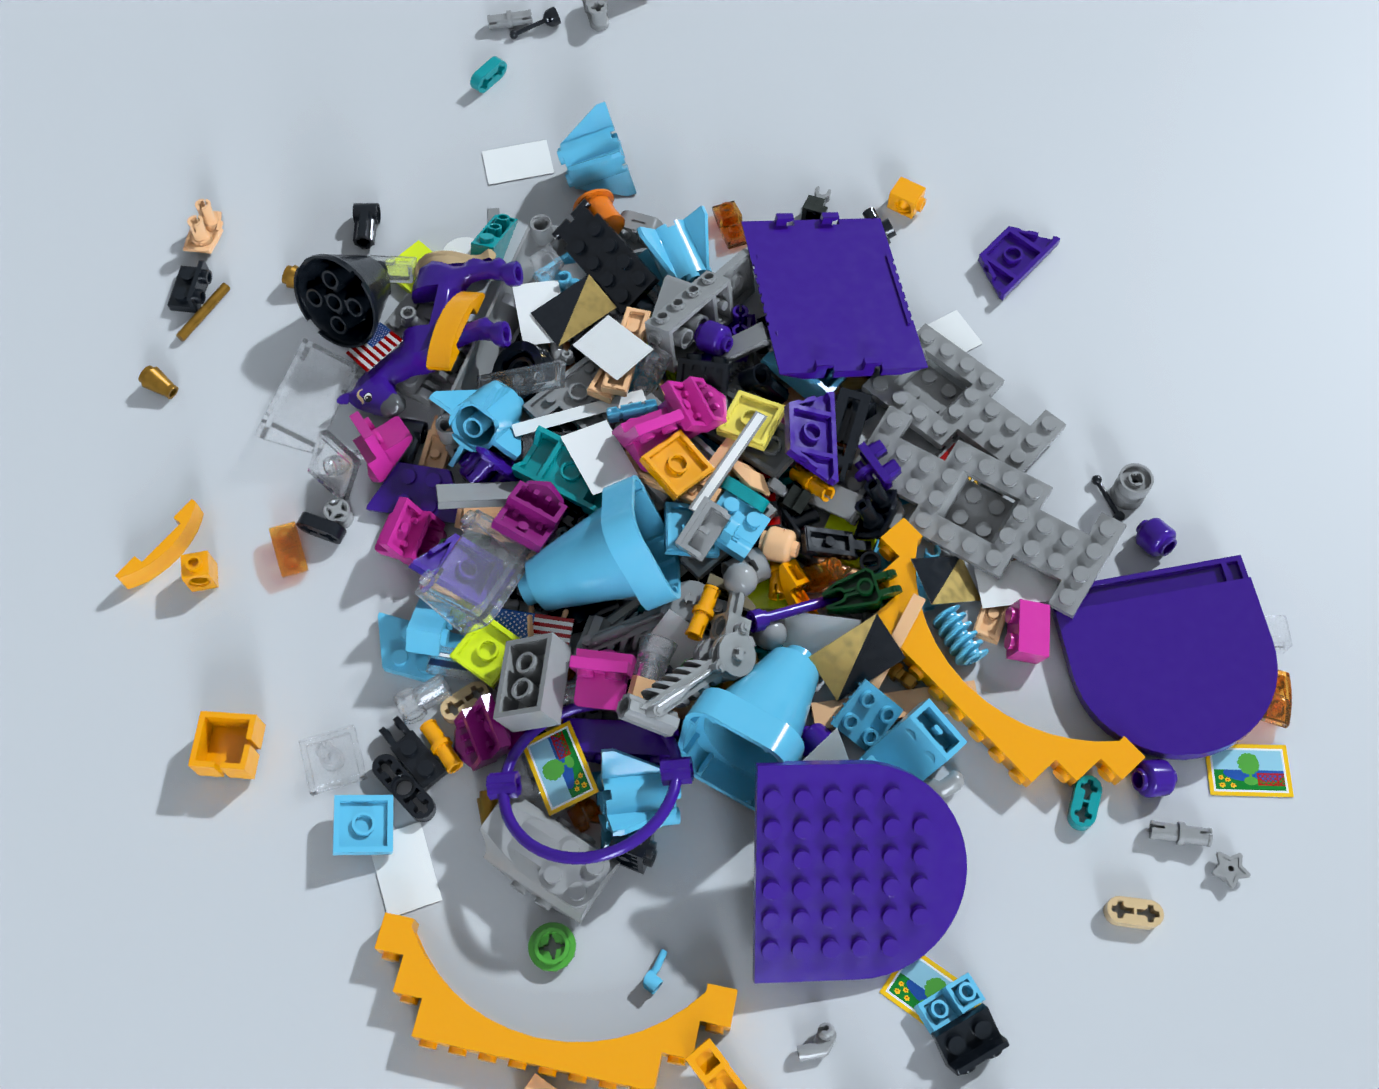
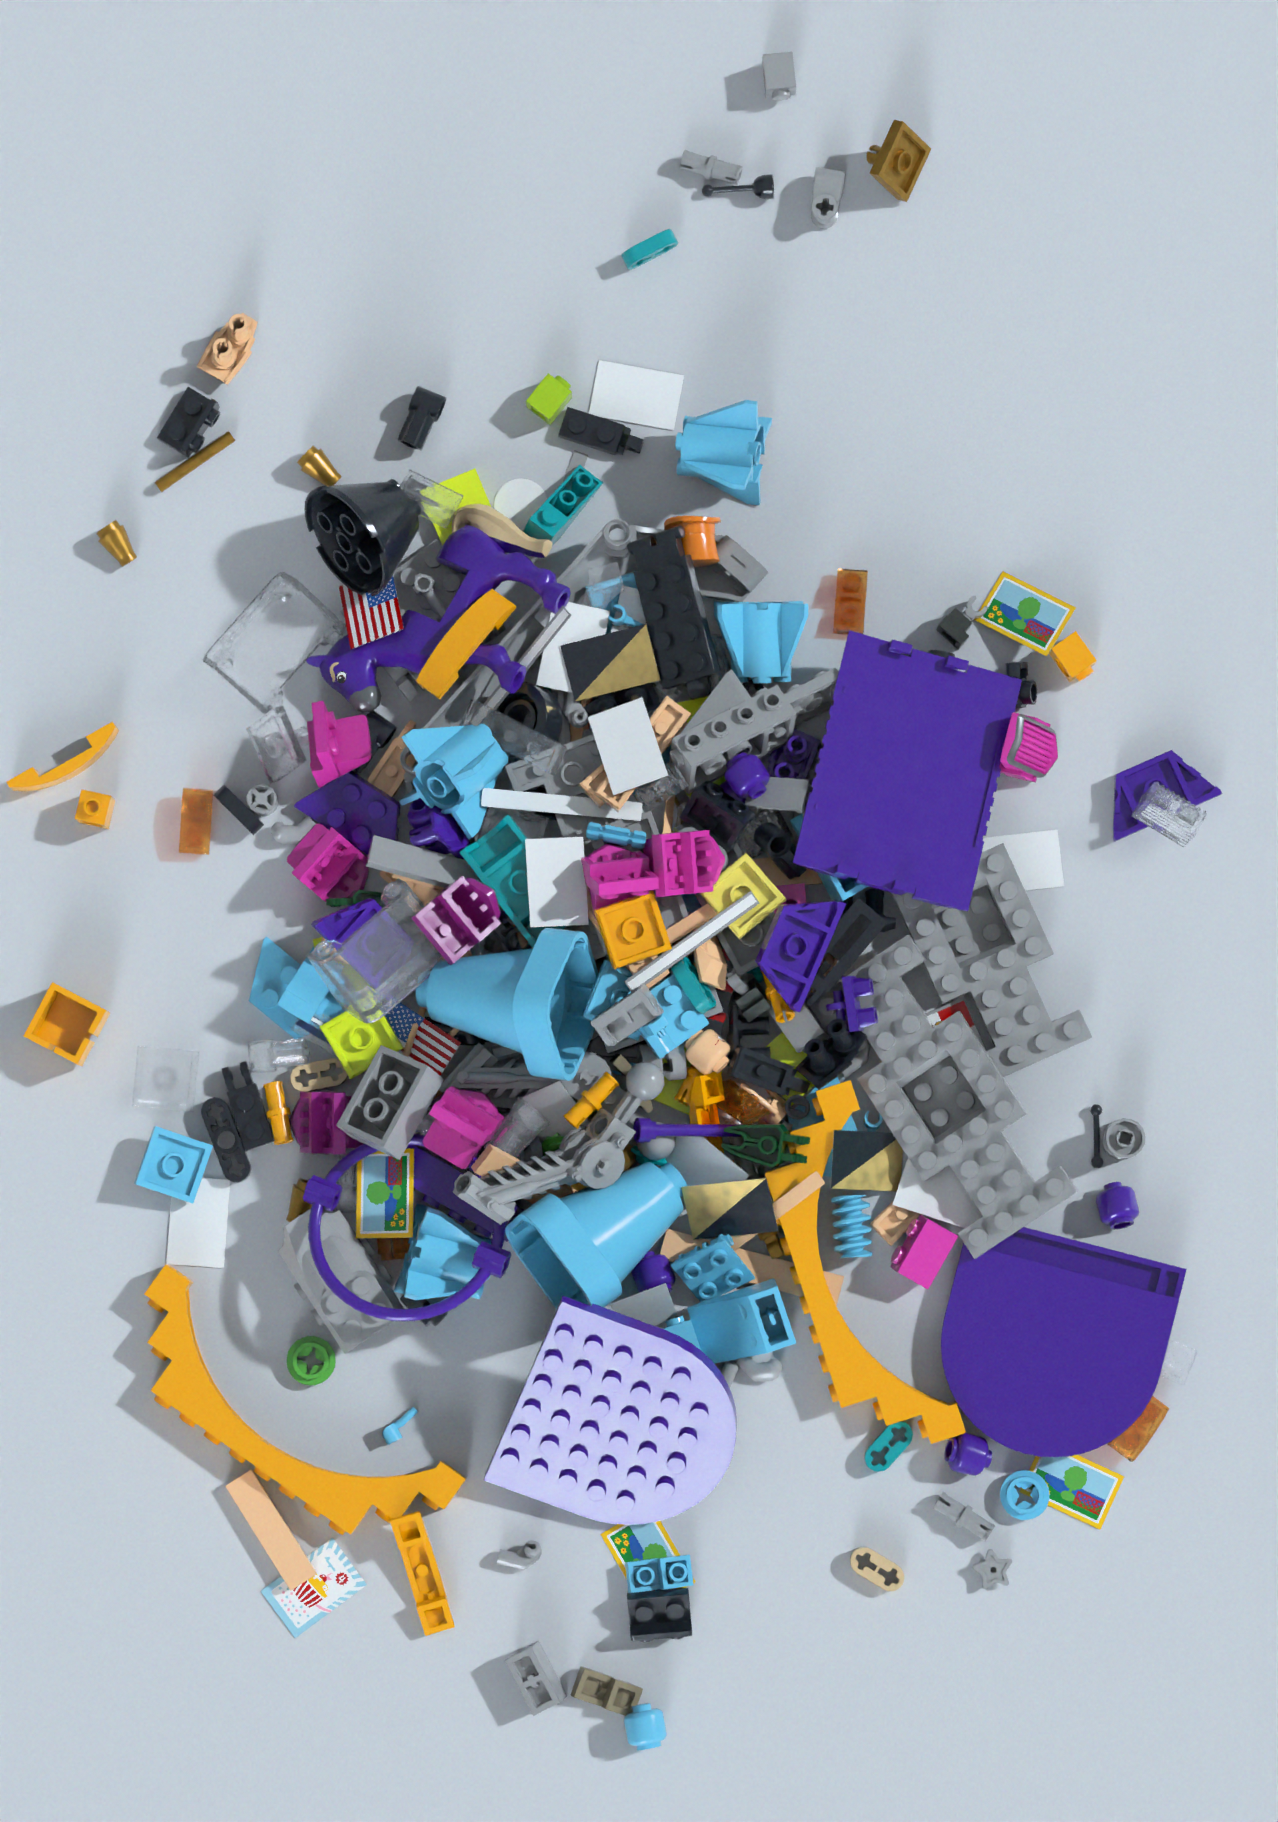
camera: 25 degrees right, 20 degrees up
(371, 530) = (292, 834): none -> light grey arm
(455, 180) = (549, 398): none -> lime brick
(501, 190) = (598, 433): none -> black hinge
(511, 319) = (533, 652): none -> sticker
(859, 184) = (1025, 613): none -> sticker
(909, 259) = (1028, 748): none -> dark pink piece
(1035, 255) = (1169, 814): none -> clear brick
(1229, 788) = (1039, 1493): none -> medium azure gear

